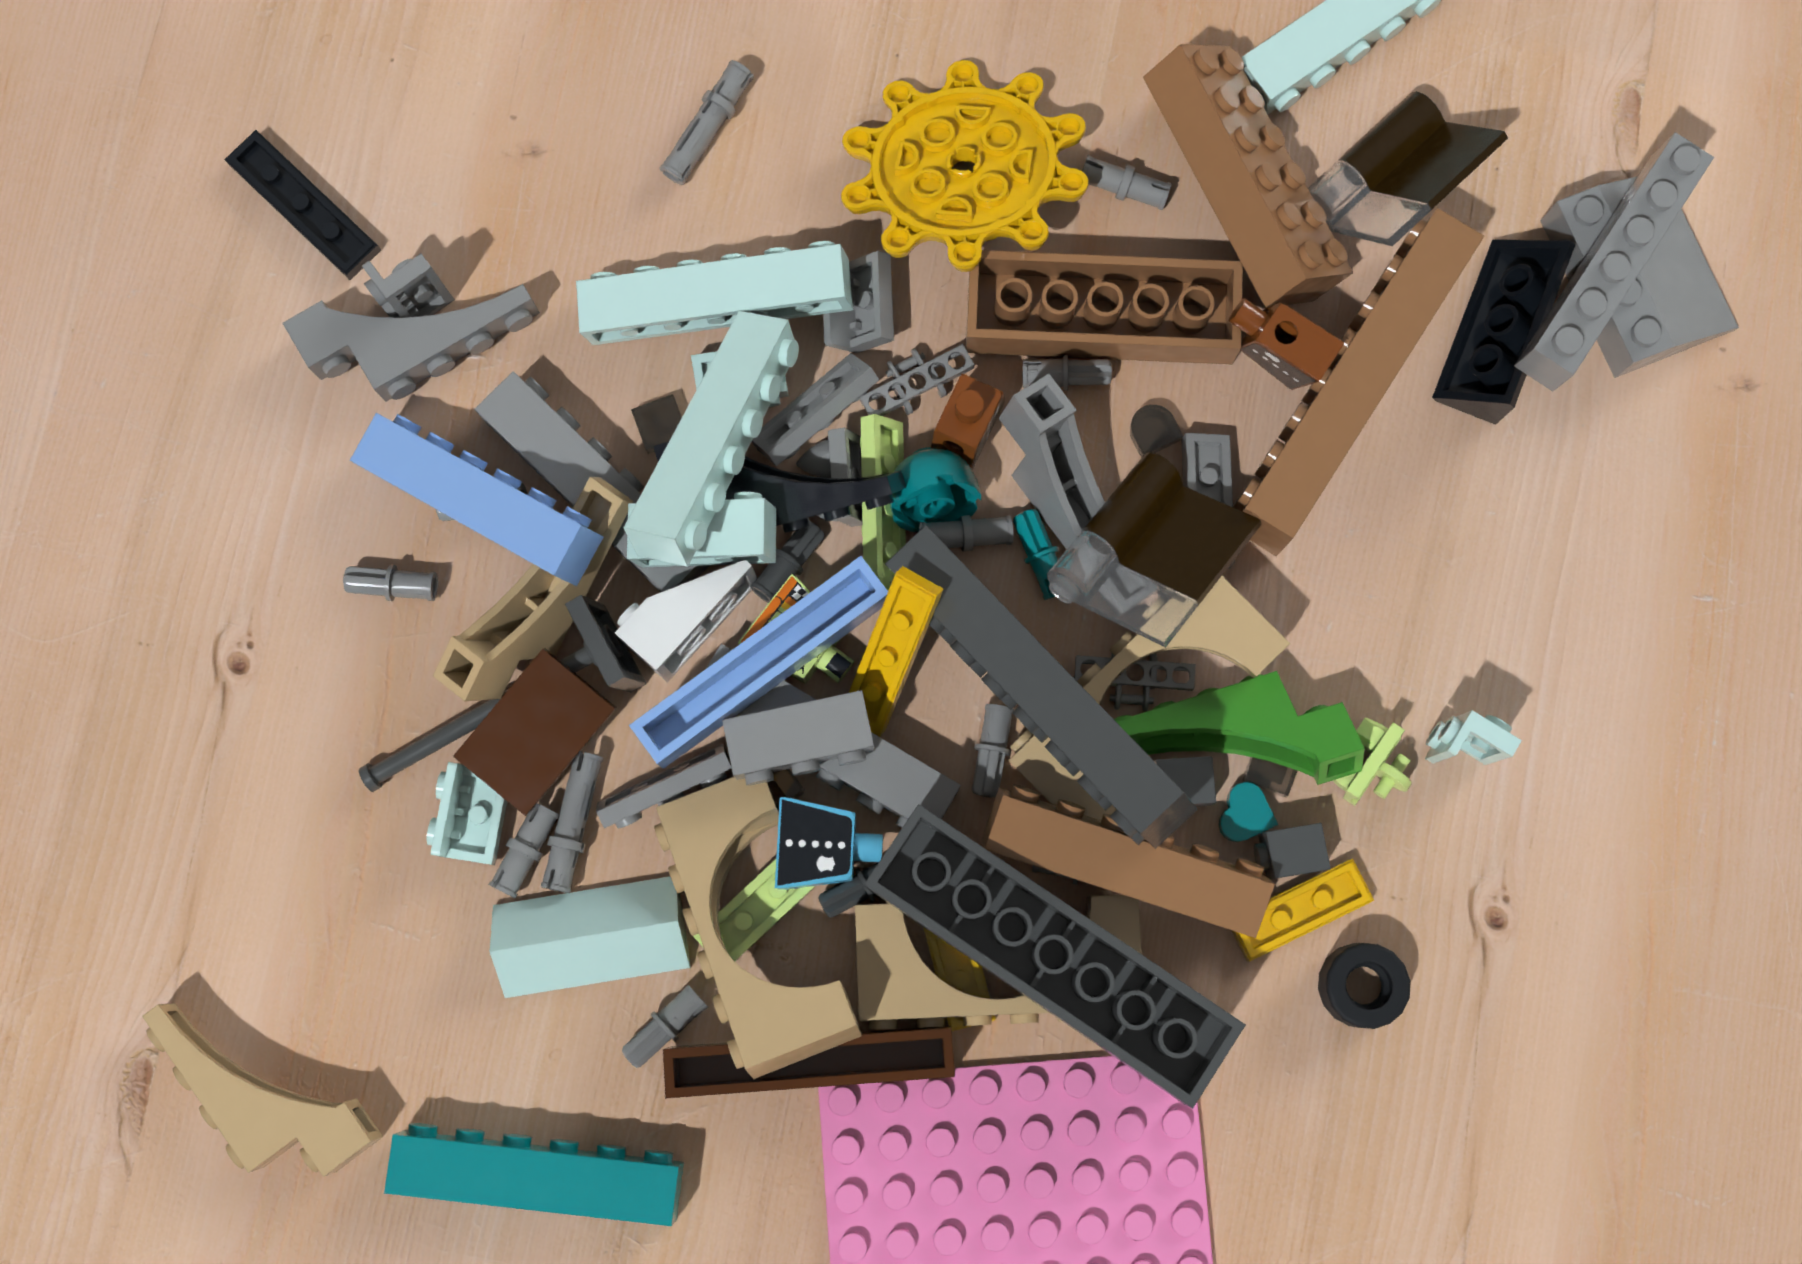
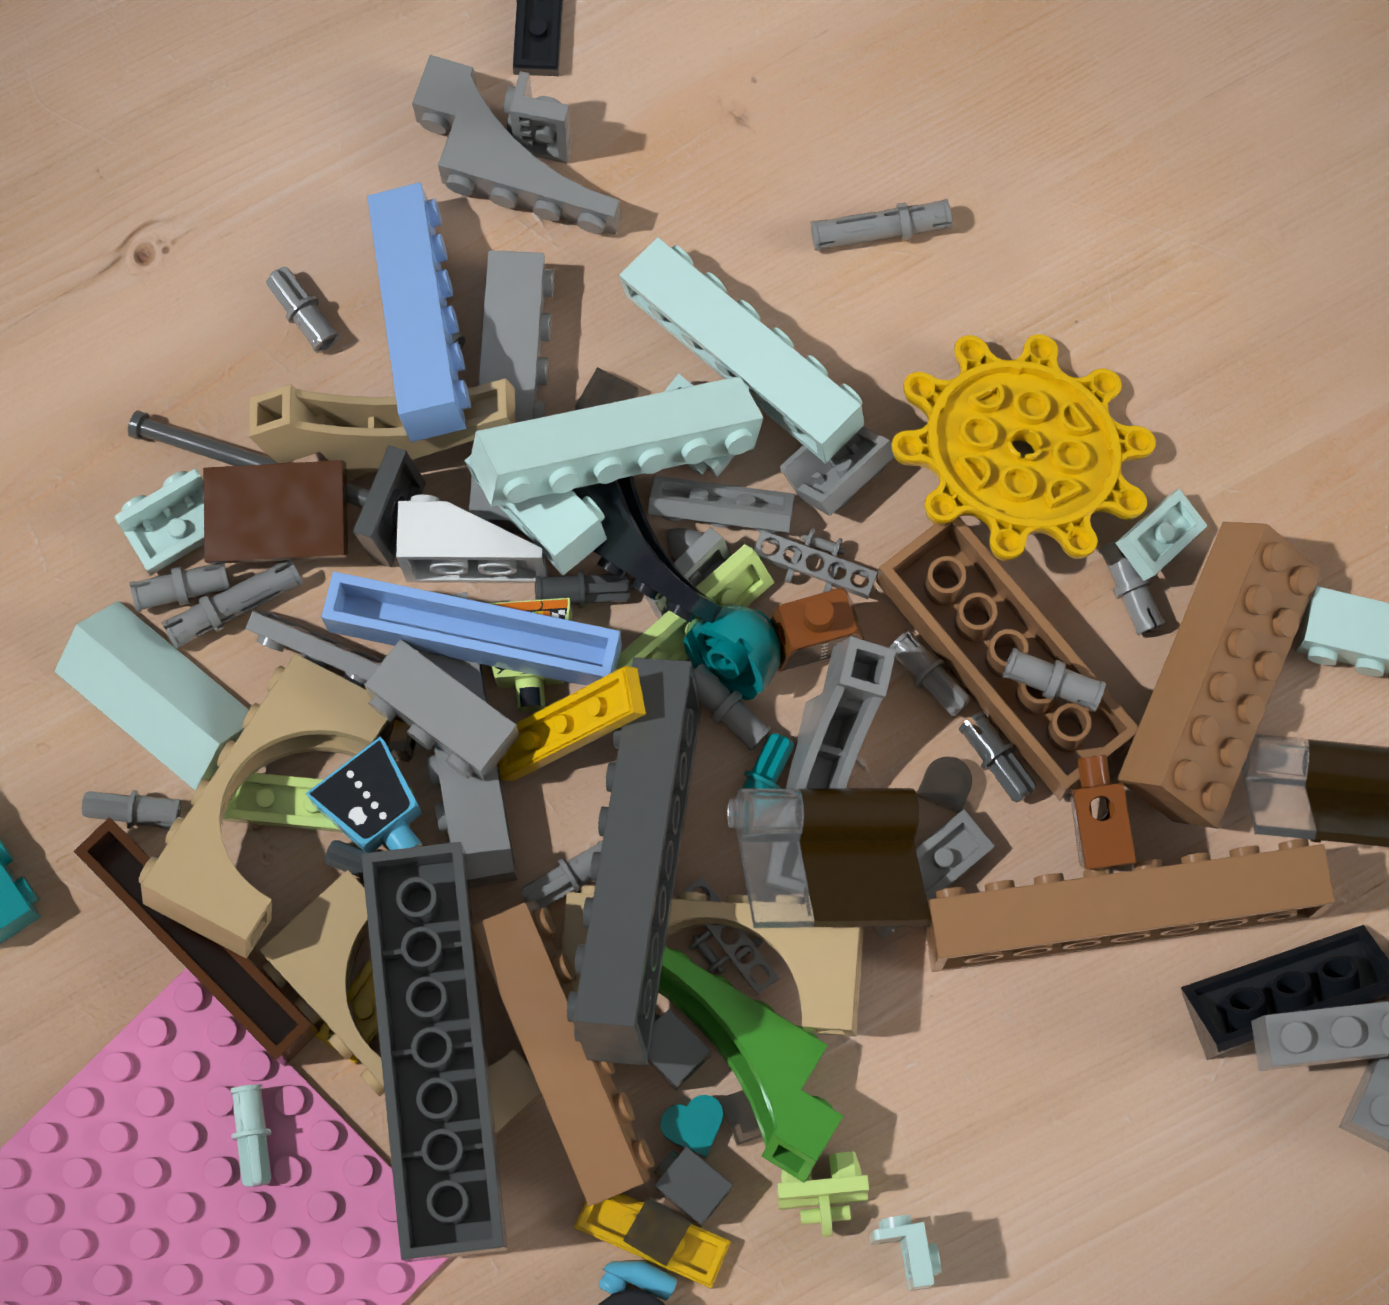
camera: 50 degrees right, 5 degrees down
(990, 1141) = (251, 1135): none -> light aqua axle
(1109, 129) = (1161, 534): none -> light aqua plate
(1159, 286) = (1054, 679): none -> light grey pin
(1168, 378) = (999, 758): none -> dark grey axle
(1305, 904) = (657, 1231): none -> clear smoke tile
(1322, 943) = (638, 1274): none -> medium azure arm

